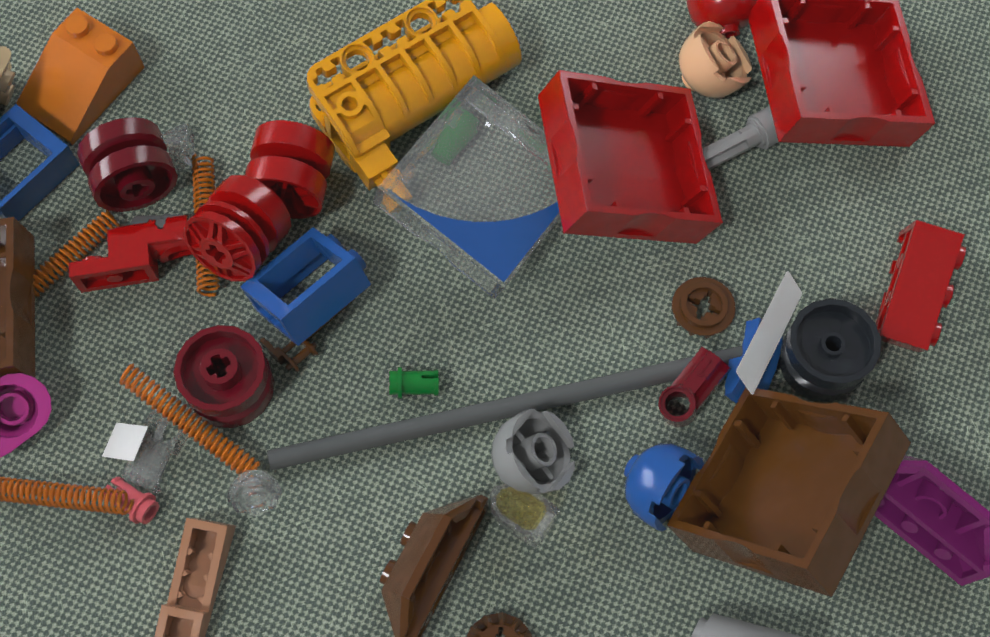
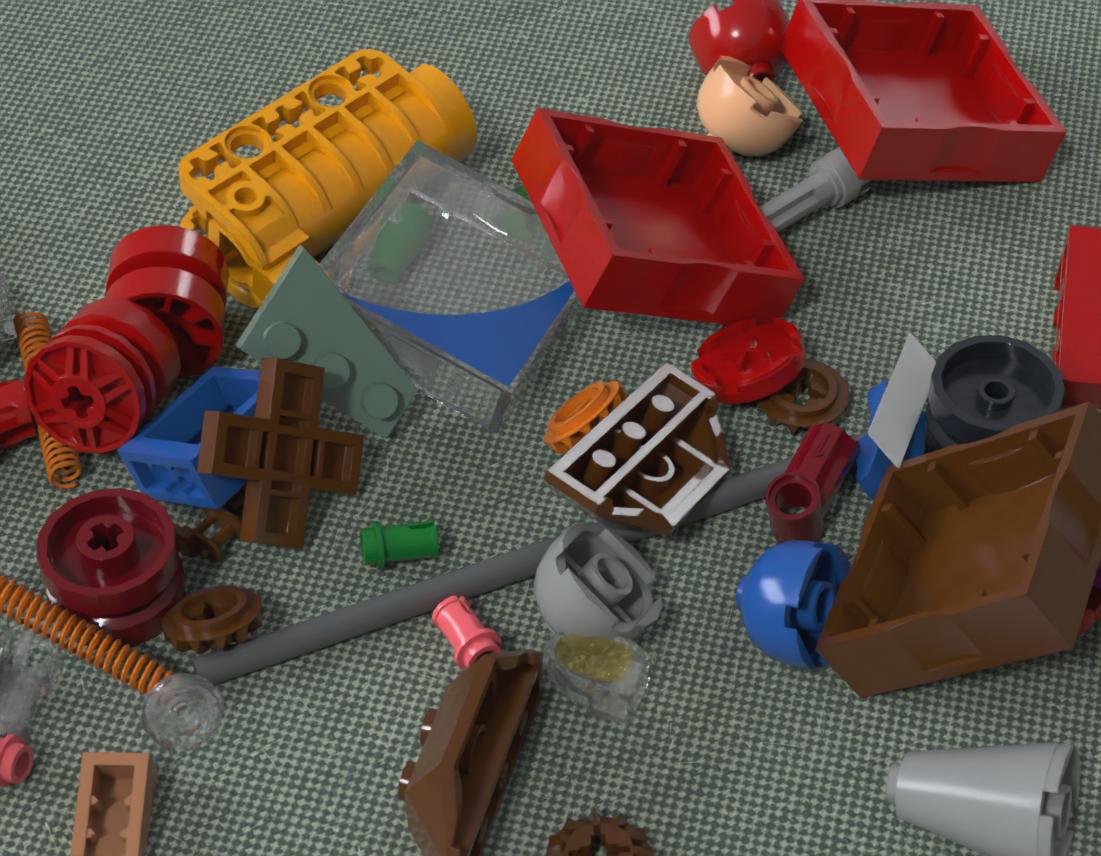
camera: 10 degrees left, 20 degrees down
(269, 420) = (212, 618): none -> reddish brown gear
(343, 314) = (280, 453): none -> reddish brown plate
(384, 235) = (315, 325): none -> sand green wing
(448, 472) = (465, 631): none -> coral pin
(552, 305) = (582, 414): none -> orange gear
(587, 356) = (647, 457): none -> reddish brown wedge
(672, 276) = (749, 360): none -> red tile

